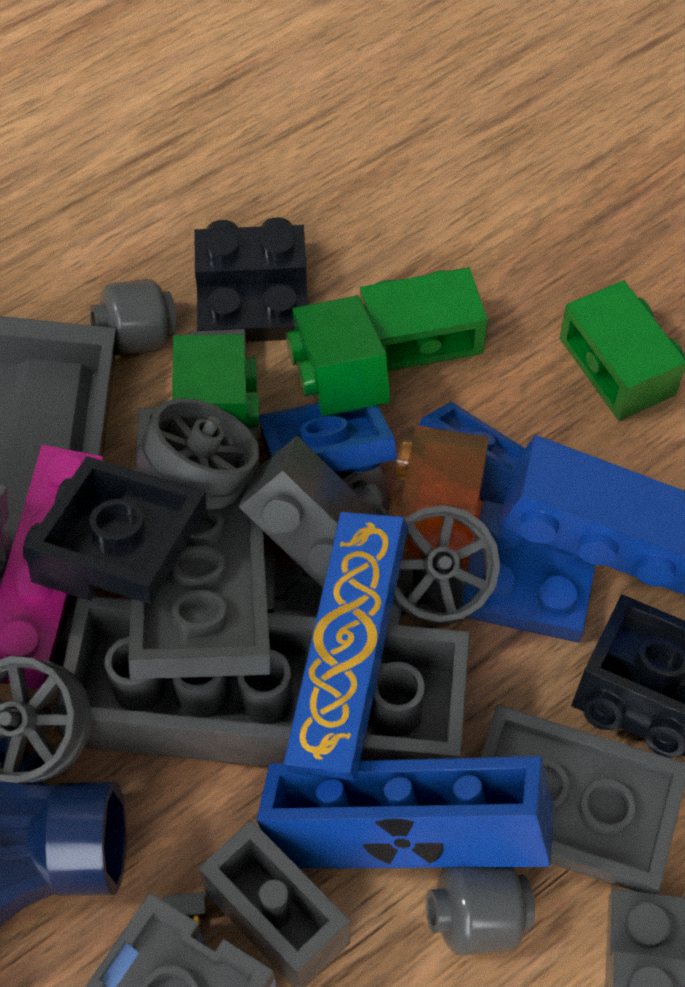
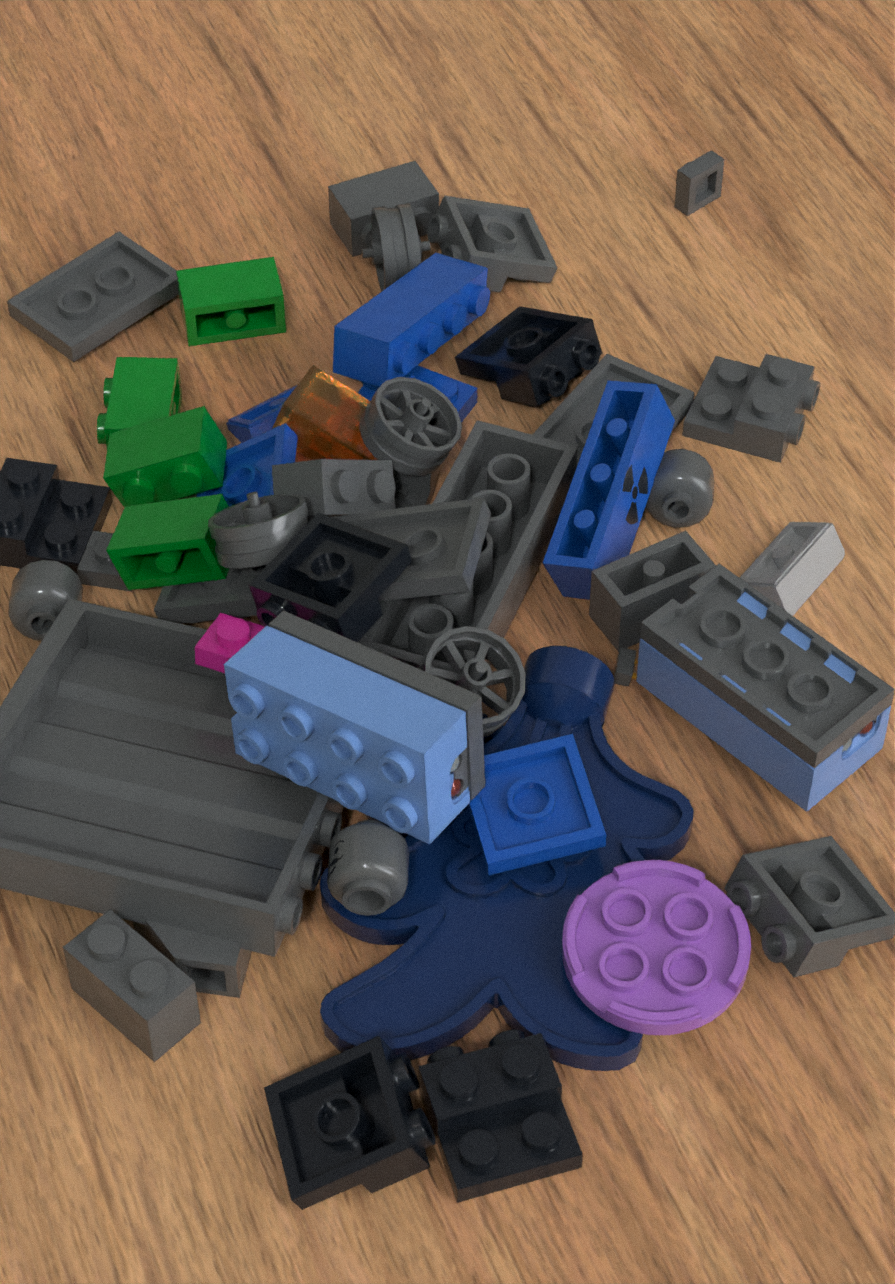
camera: 75 degrees left, 10 degrees down
(346, 646) = (473, 472): blue tile -> none
(583, 231) = (95, 296): none -> dark grey plate

